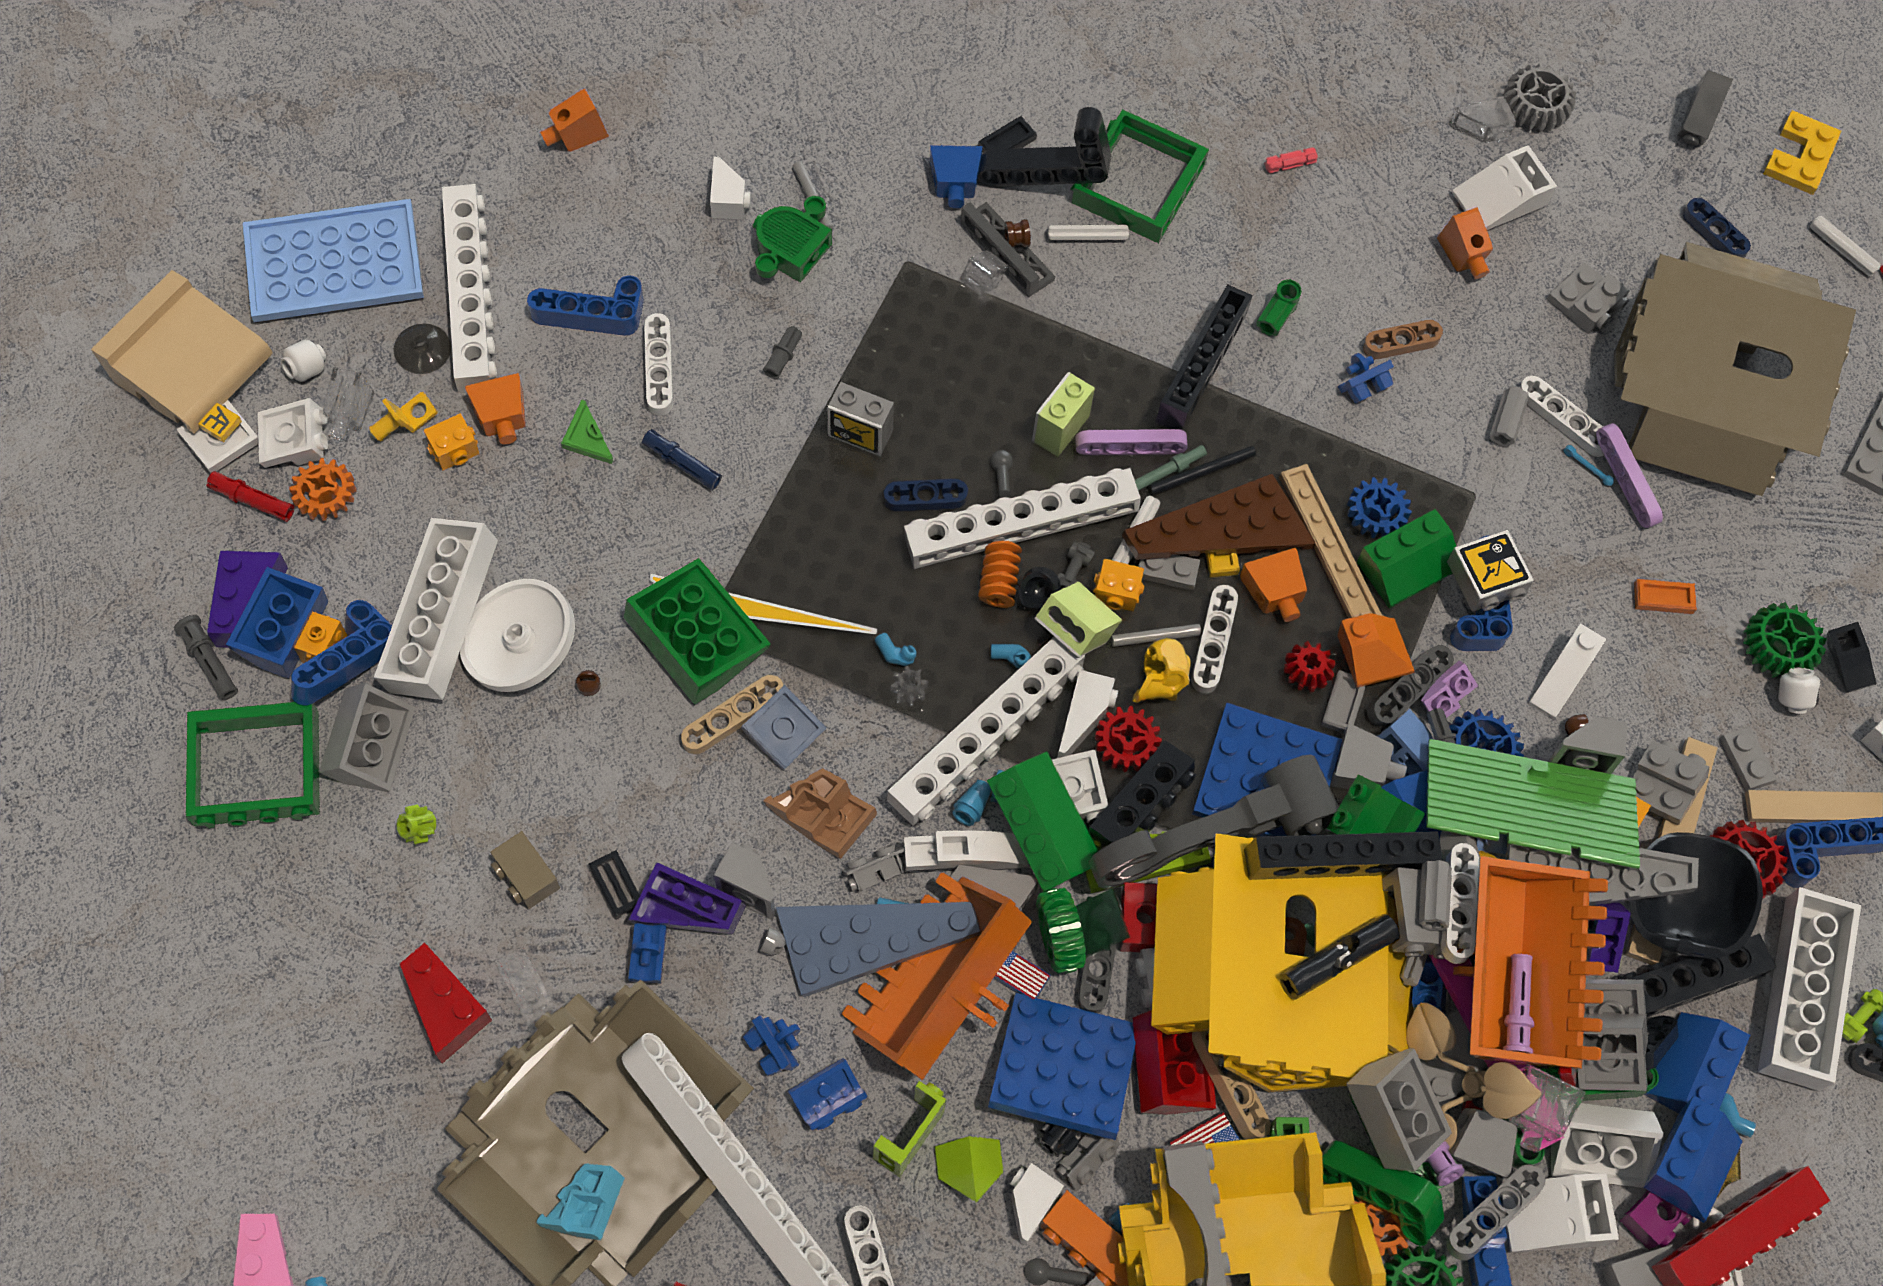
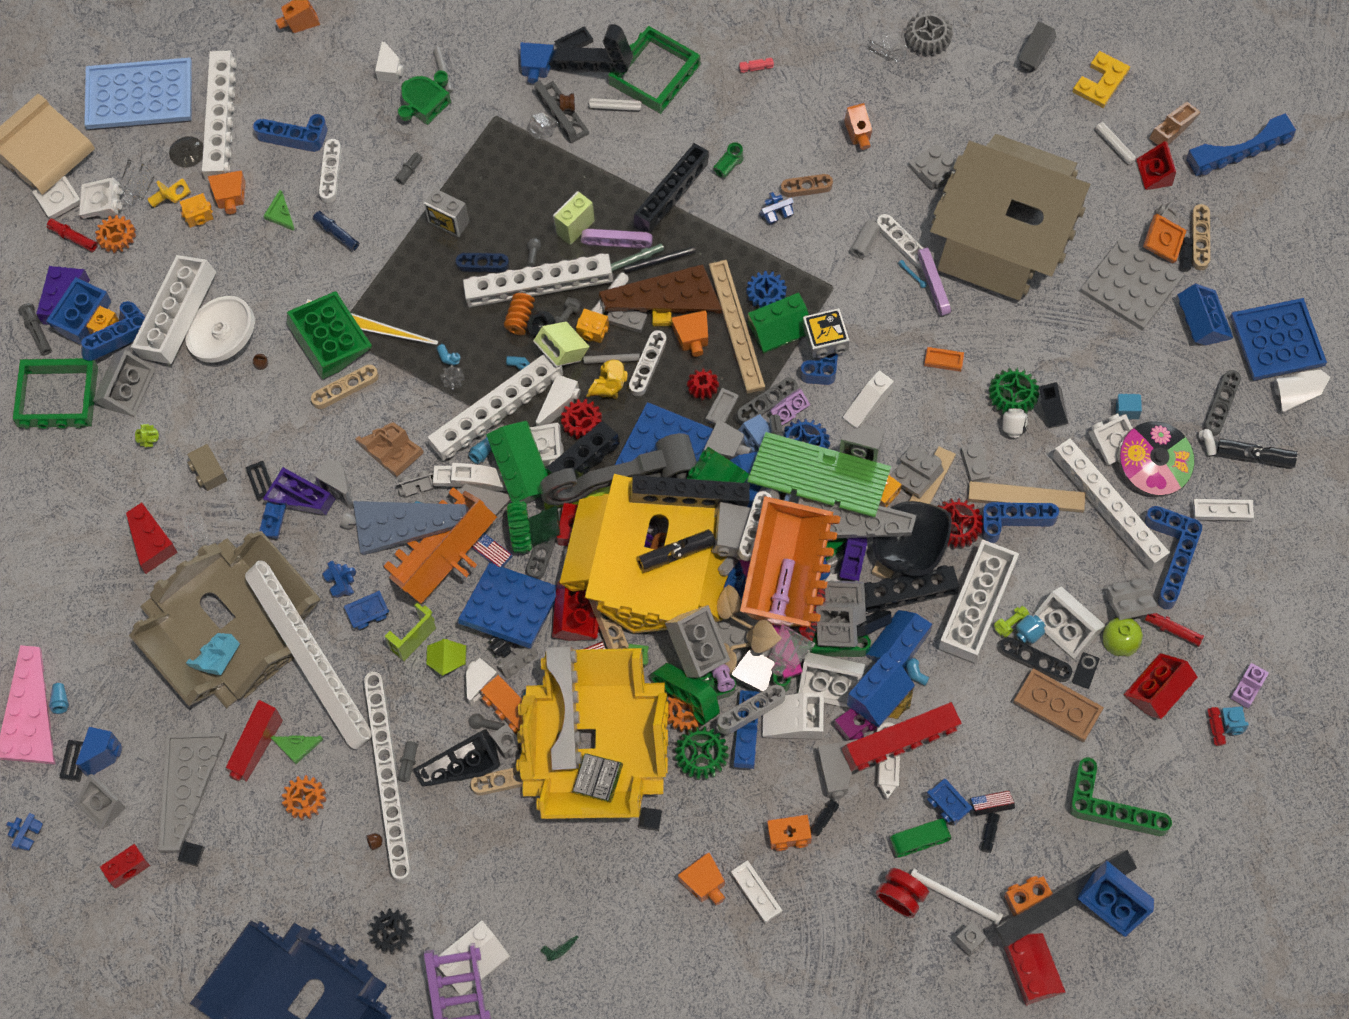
camera: 15 degrees right, 0 degrees up
(220, 422) = (58, 188): yellow tile -> none
(303, 360) = (112, 154): white head -> none
(783, 727) = (373, 396): sand blue tile -> none
(1374, 649) = (744, 375): orange slope -> none
(1435, 895) = (738, 519): light grey axle -> none
(1507, 188) = (892, 93): white slope -> none
(1706, 212) = (1031, 135): dark blue beam -> none

